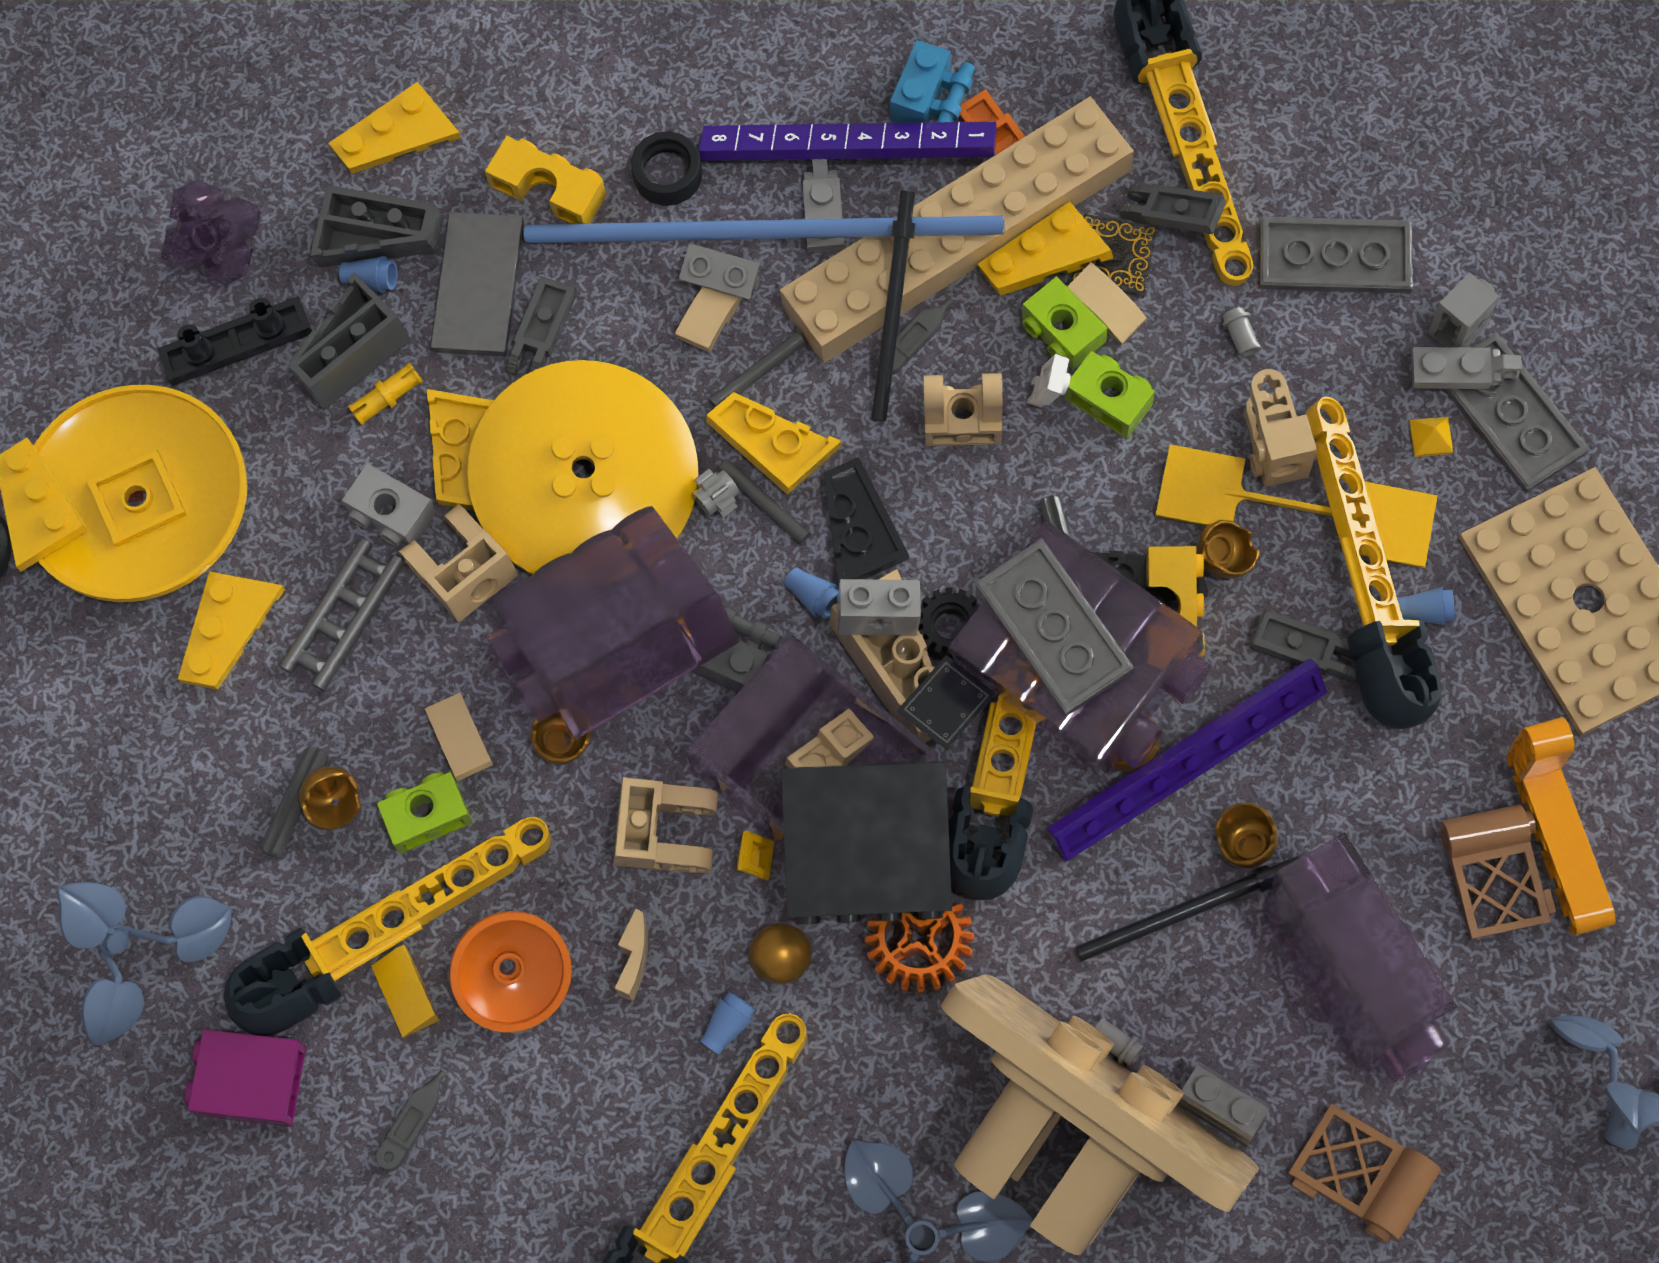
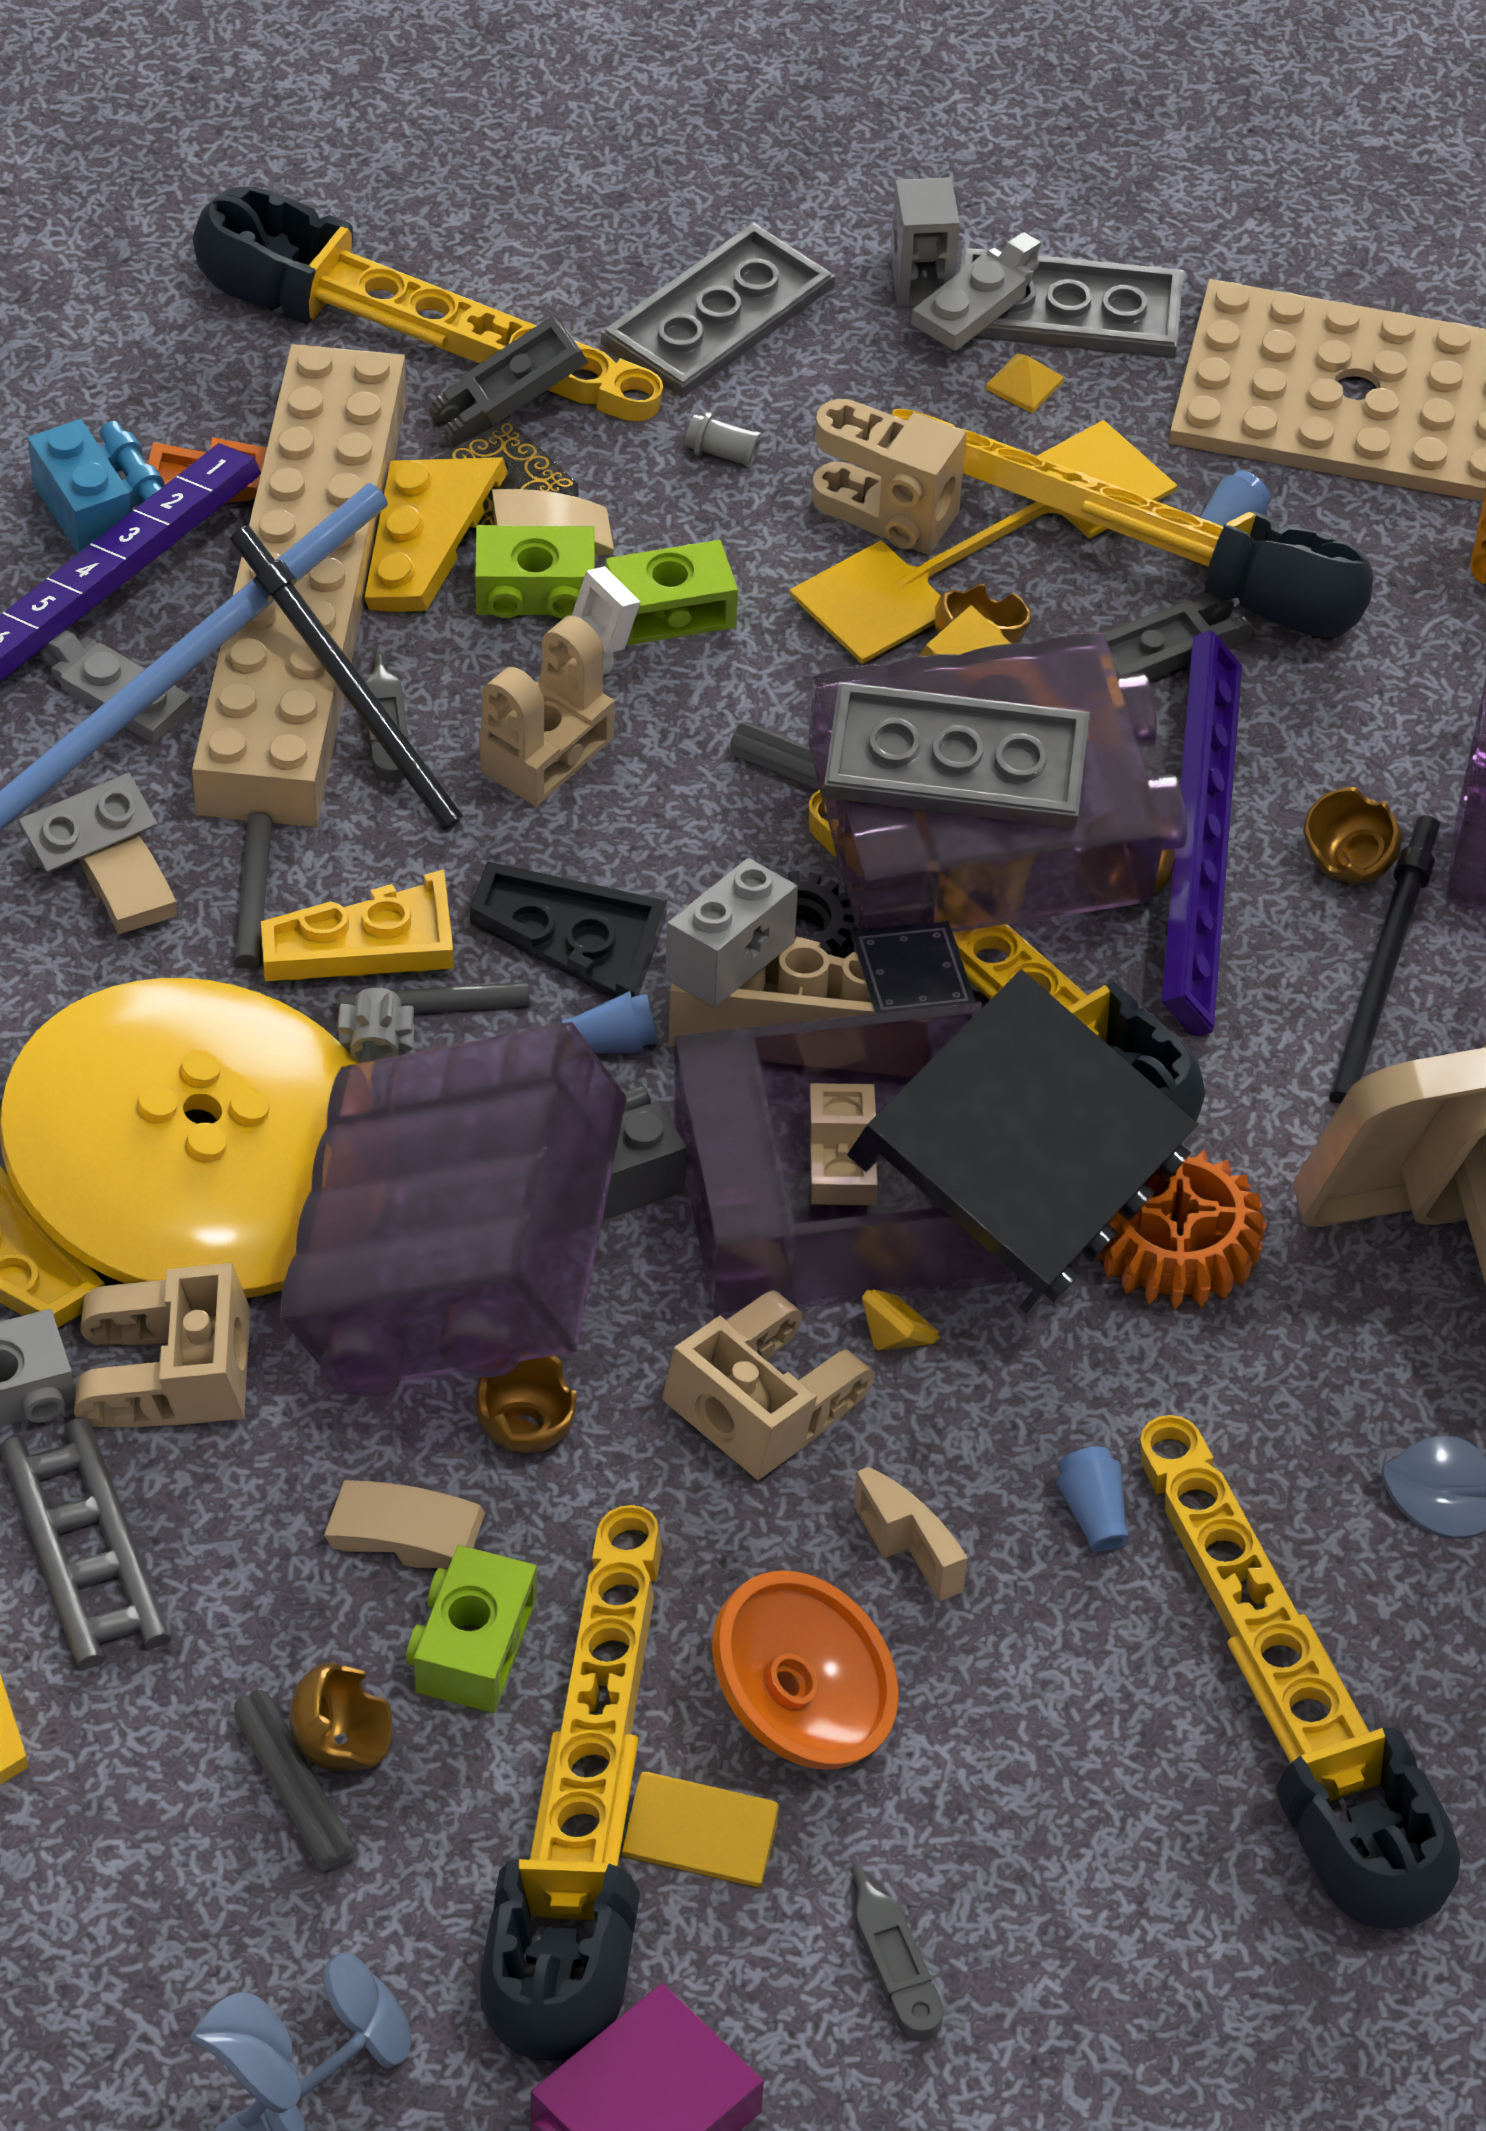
camera: 60 degrees left, 20 degrees down
(780, 953) = (1053, 1385): pearl gold hair -> none

